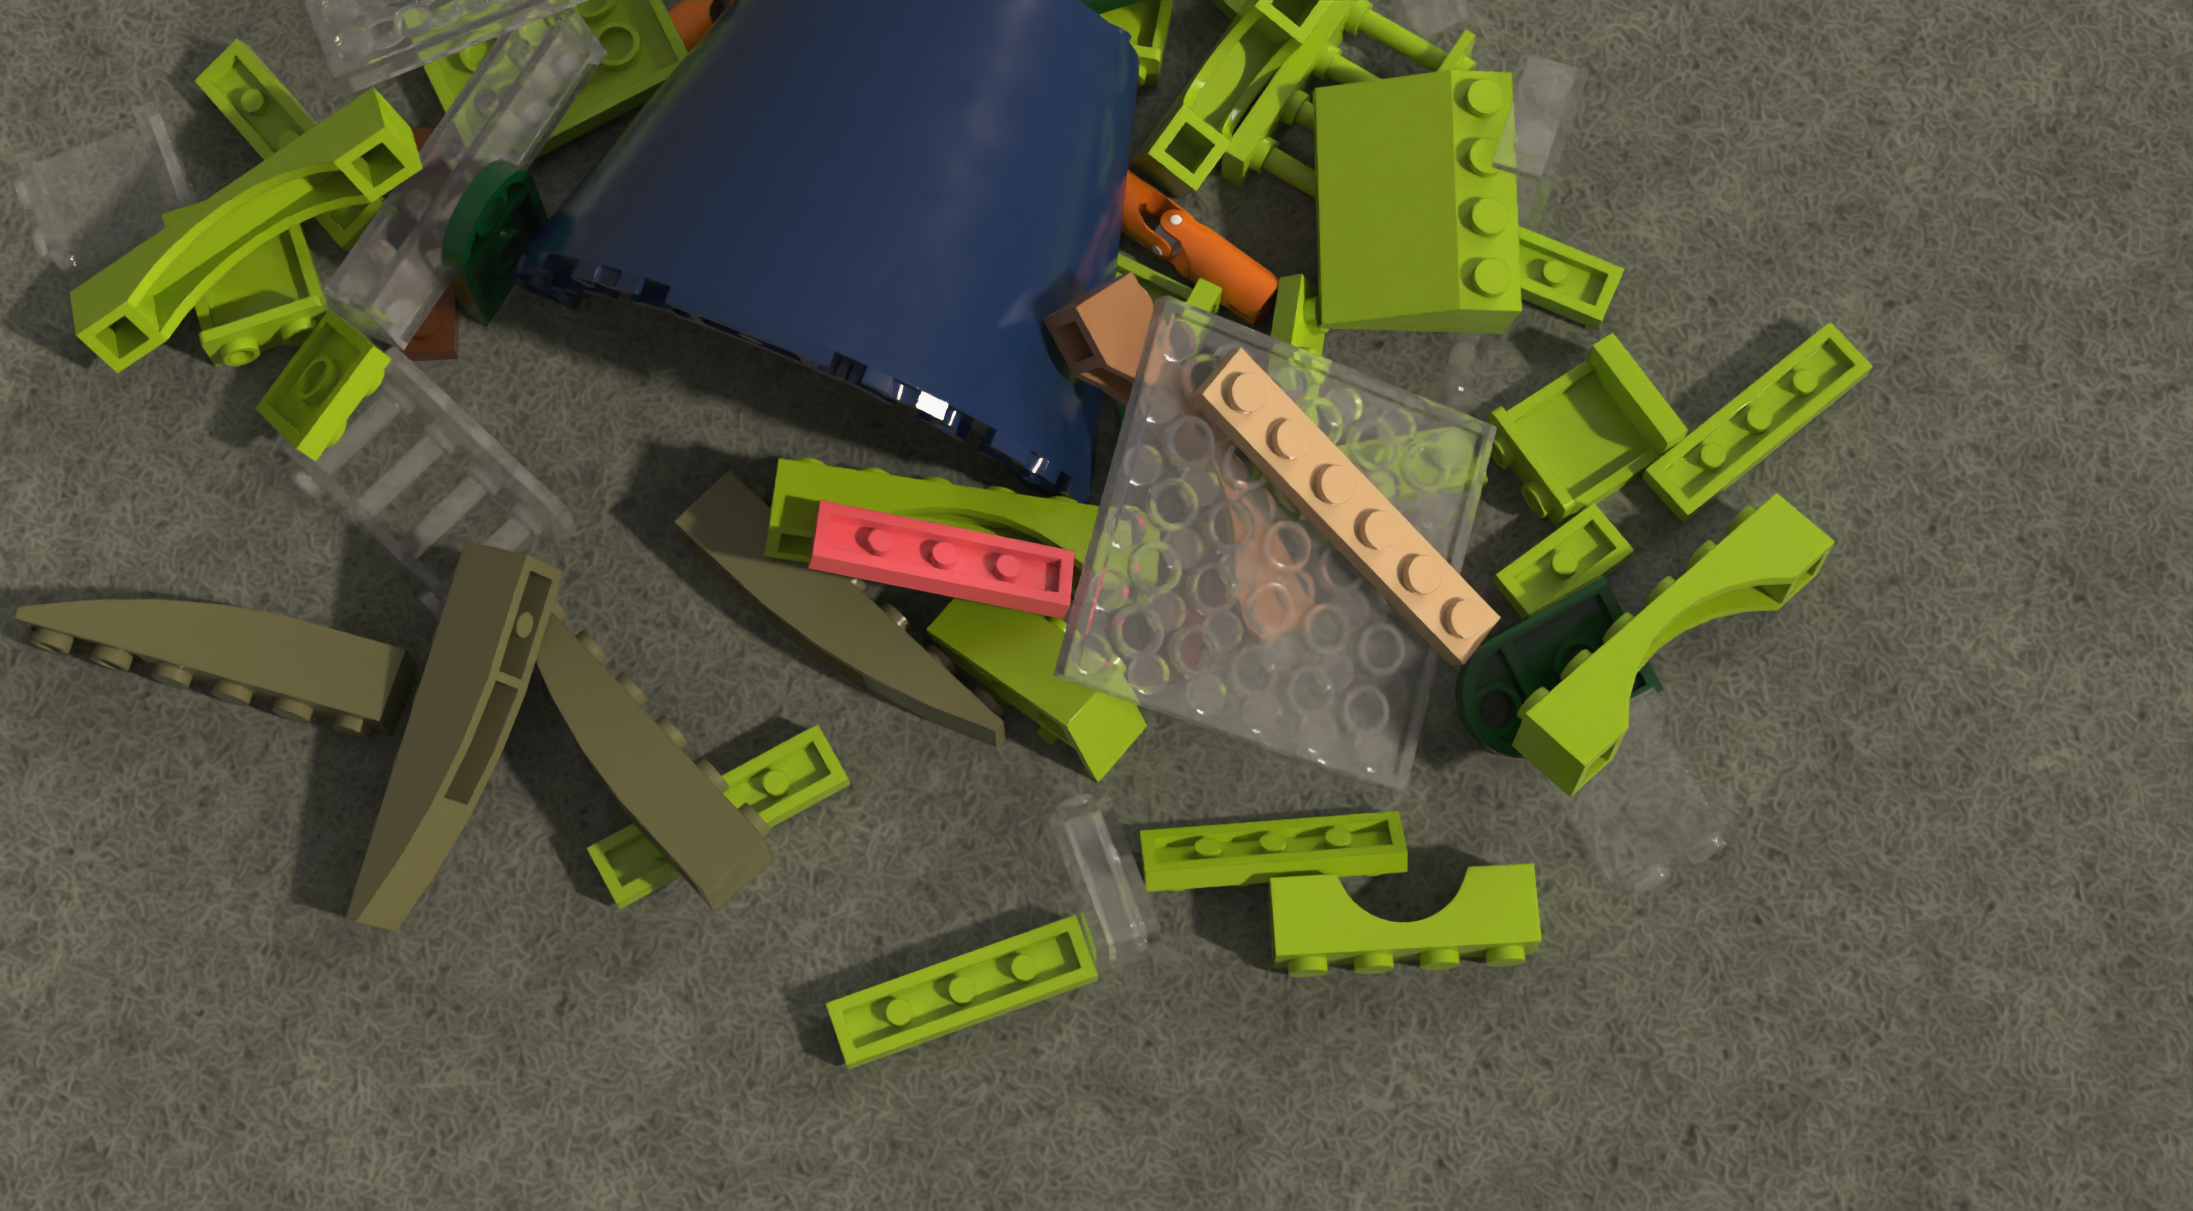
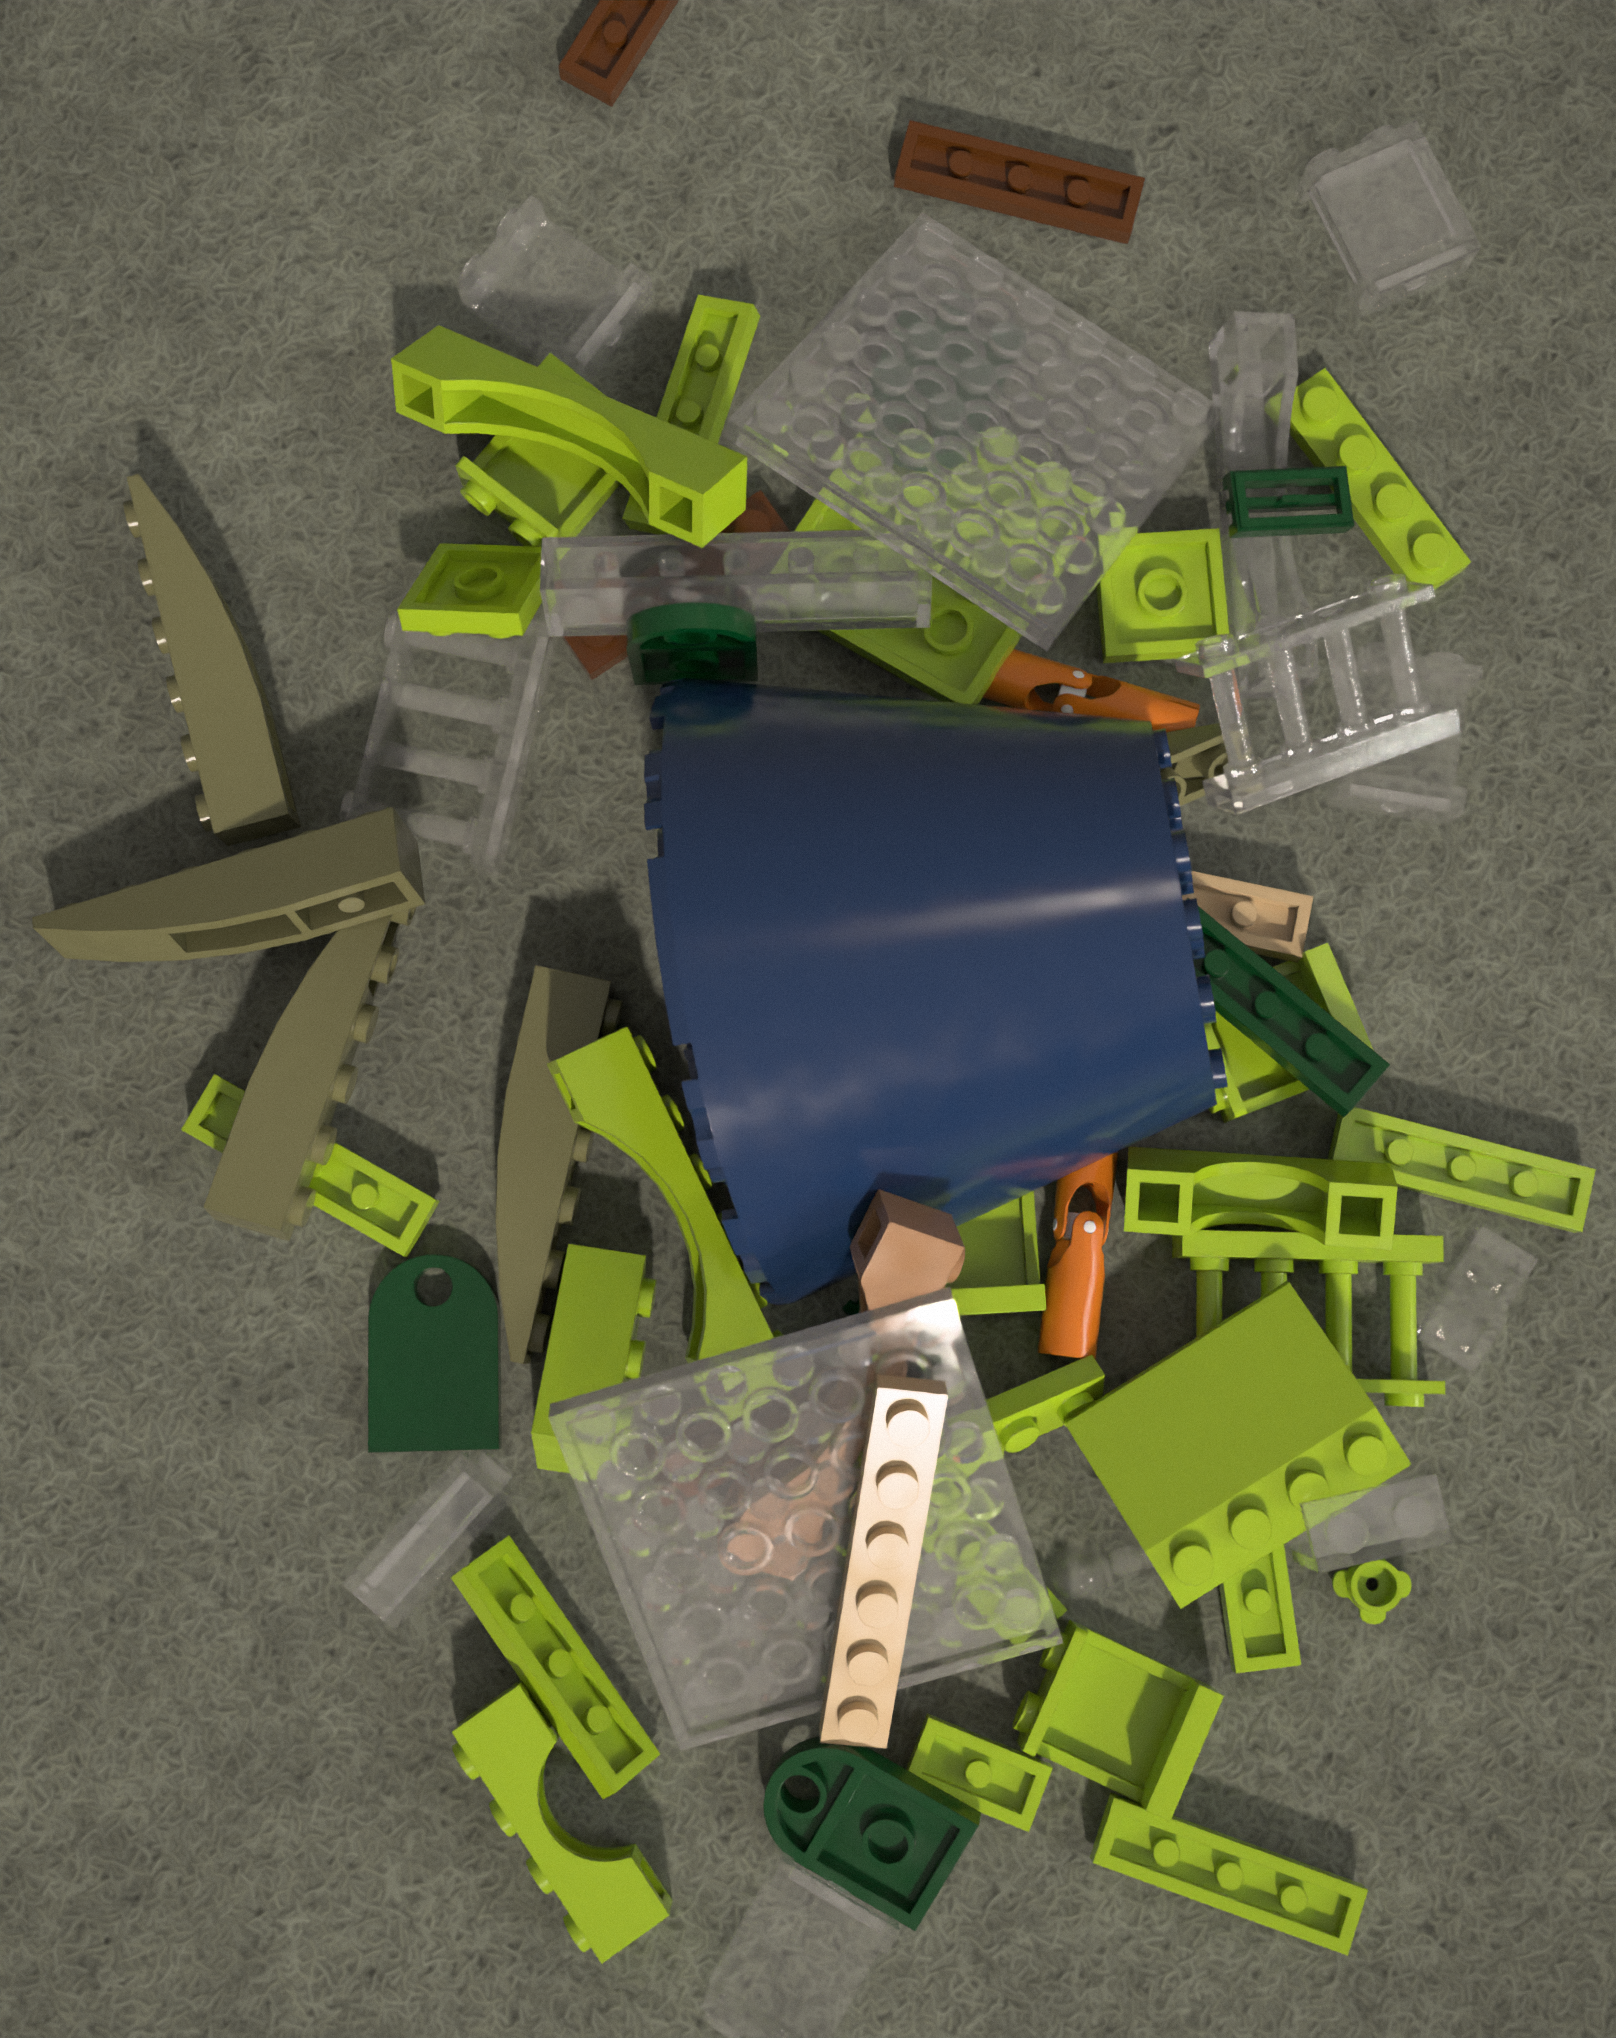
camera: 55 degrees right, 10 degrees up
(941, 559) = (618, 1229): coral plate -> none
(956, 813) = (434, 1366): none -> dark green tile
(962, 992) = (275, 1467): lime plate -> none
(1593, 169) = (1372, 1604): none -> lime plate
(1753, 569) = (823, 1898): lime arch -> none

